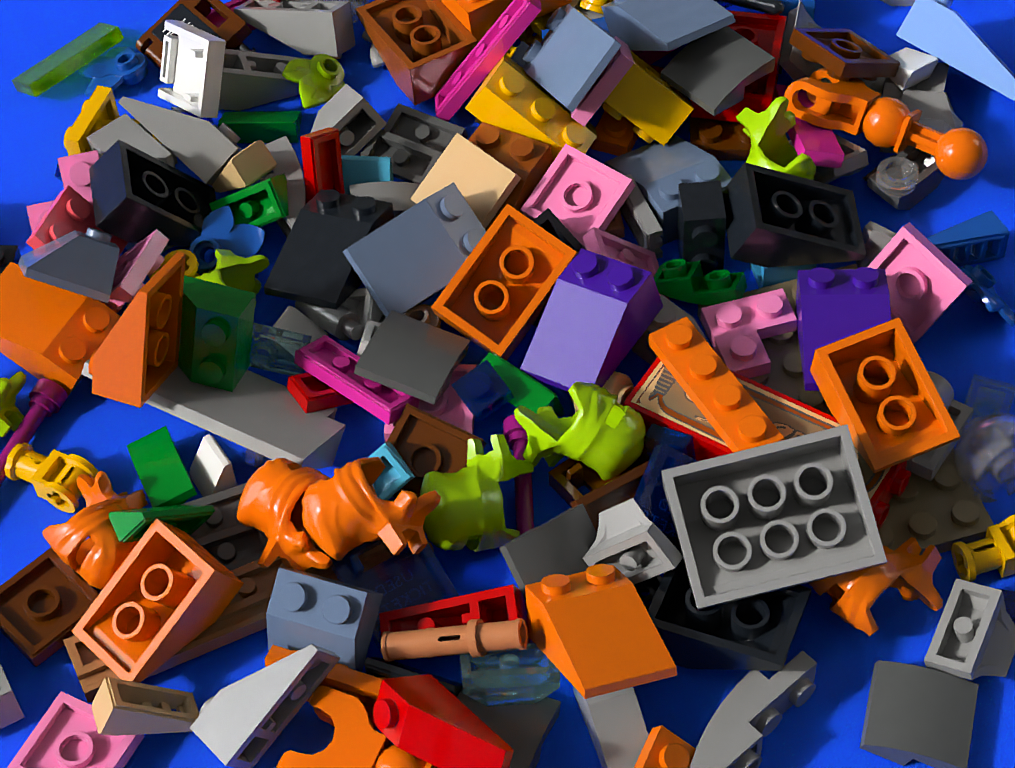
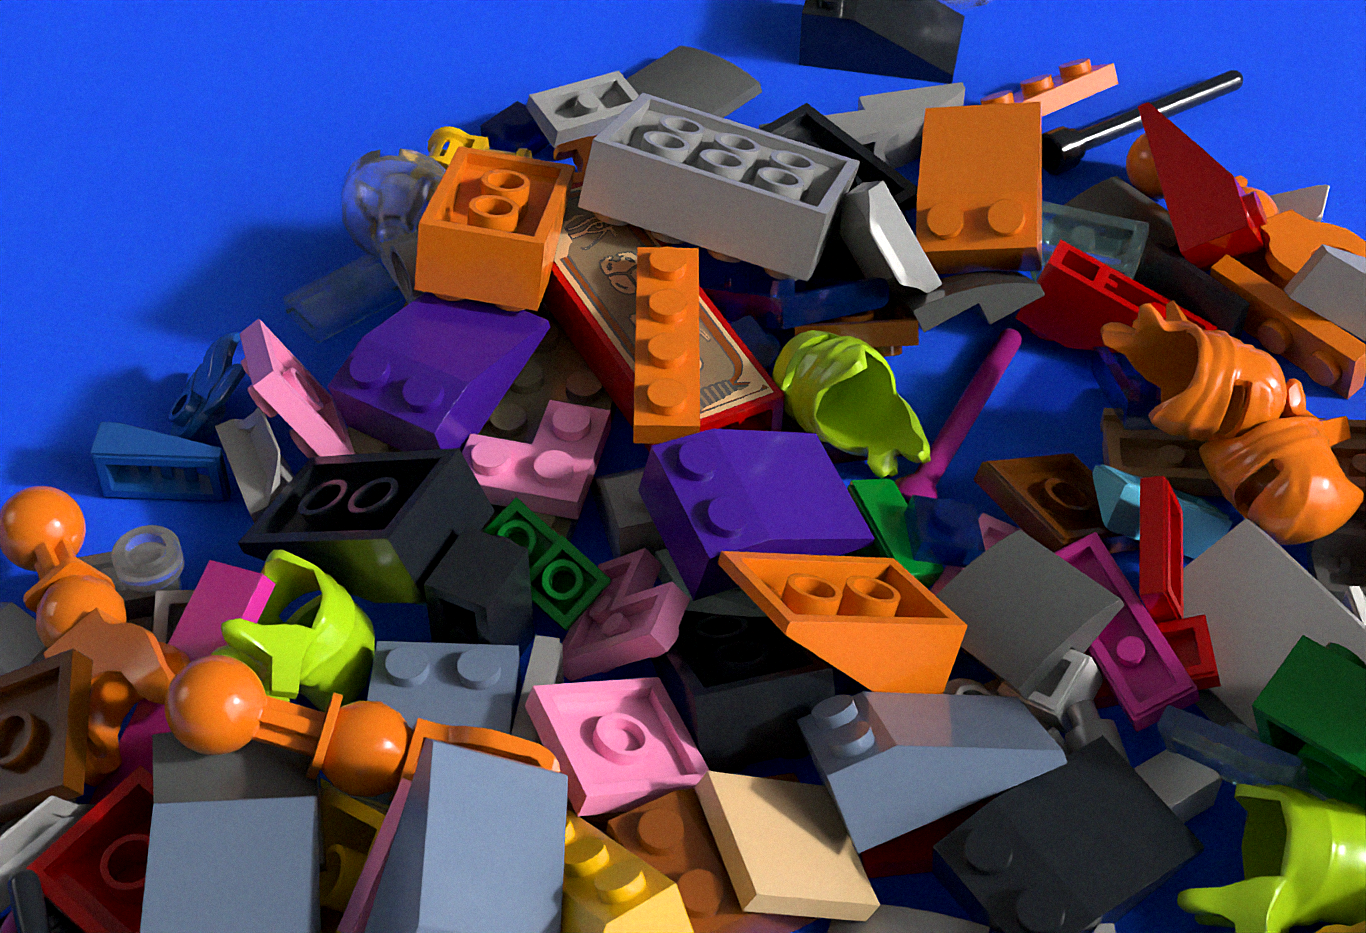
camera: 155 degrees left, 5 degrees down
(322, 613) = (1303, 348): sand blue slope -> none
(346, 416) = (1161, 550): none -> red tile
(472, 499) = (1033, 409): lime piece -> none
(472, 638) = (1139, 259): nougat pin -> none
(672, 97) = (359, 747): none -> orange piece

